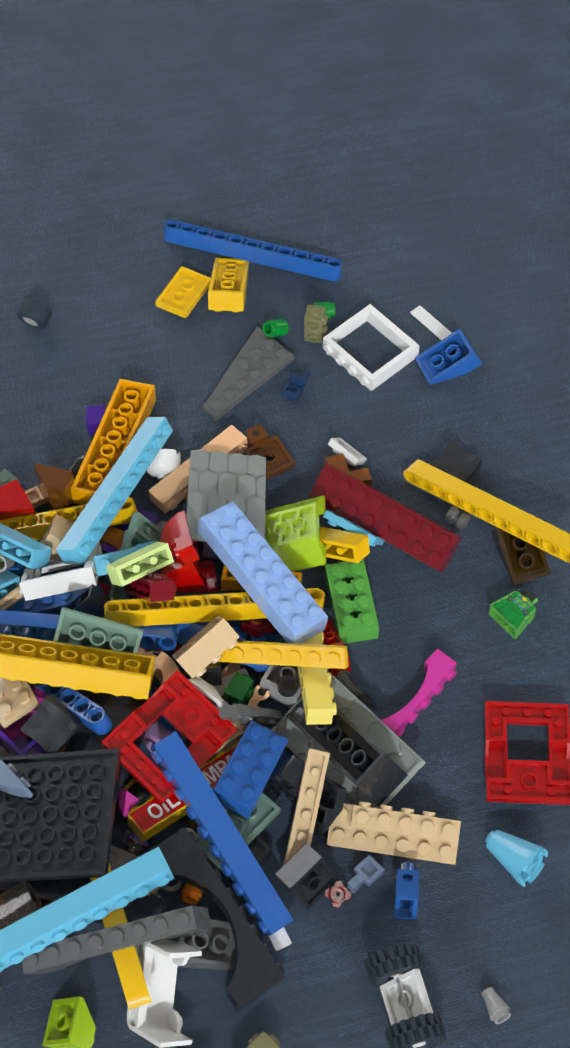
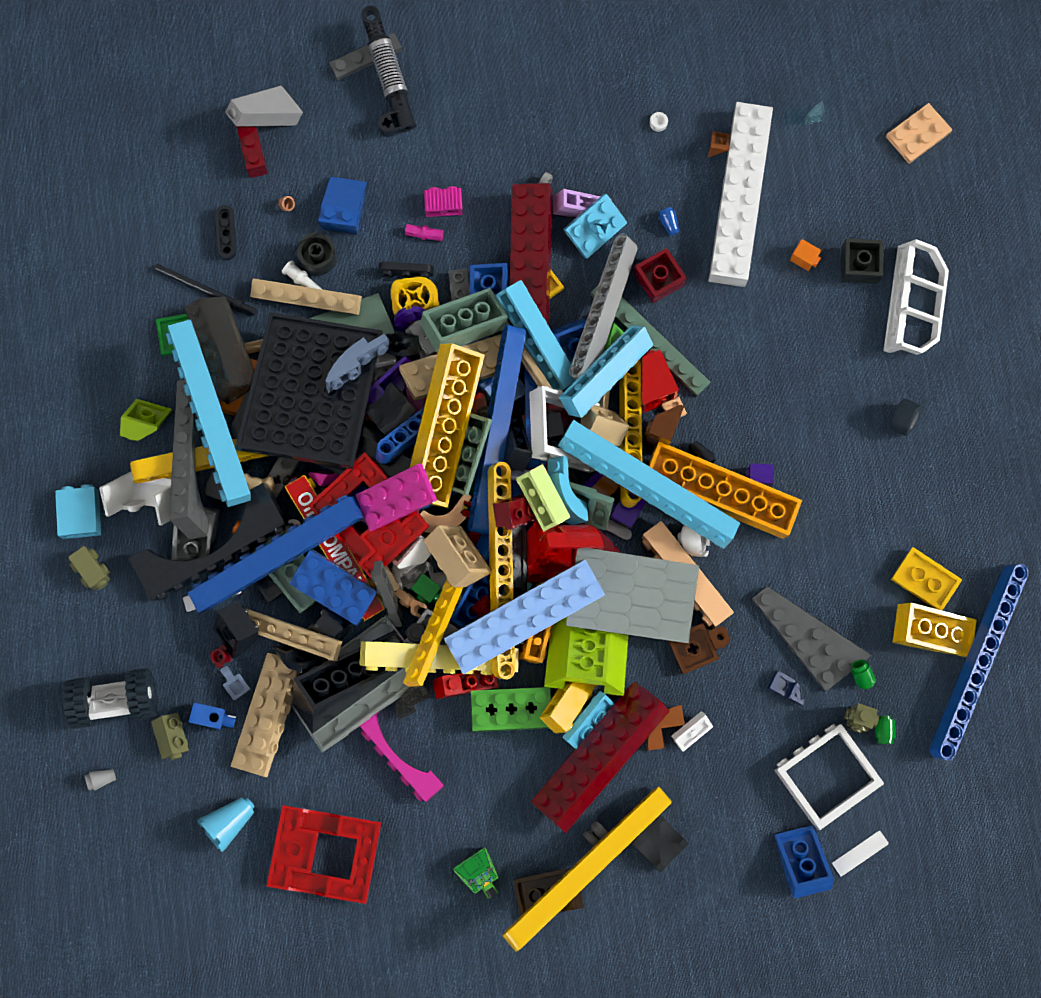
camera: 95 degrees right, 20 degrees up
(151, 696) = (396, 497): none -> dark pink plate
(435, 931) = (170, 736): none -> olive brick

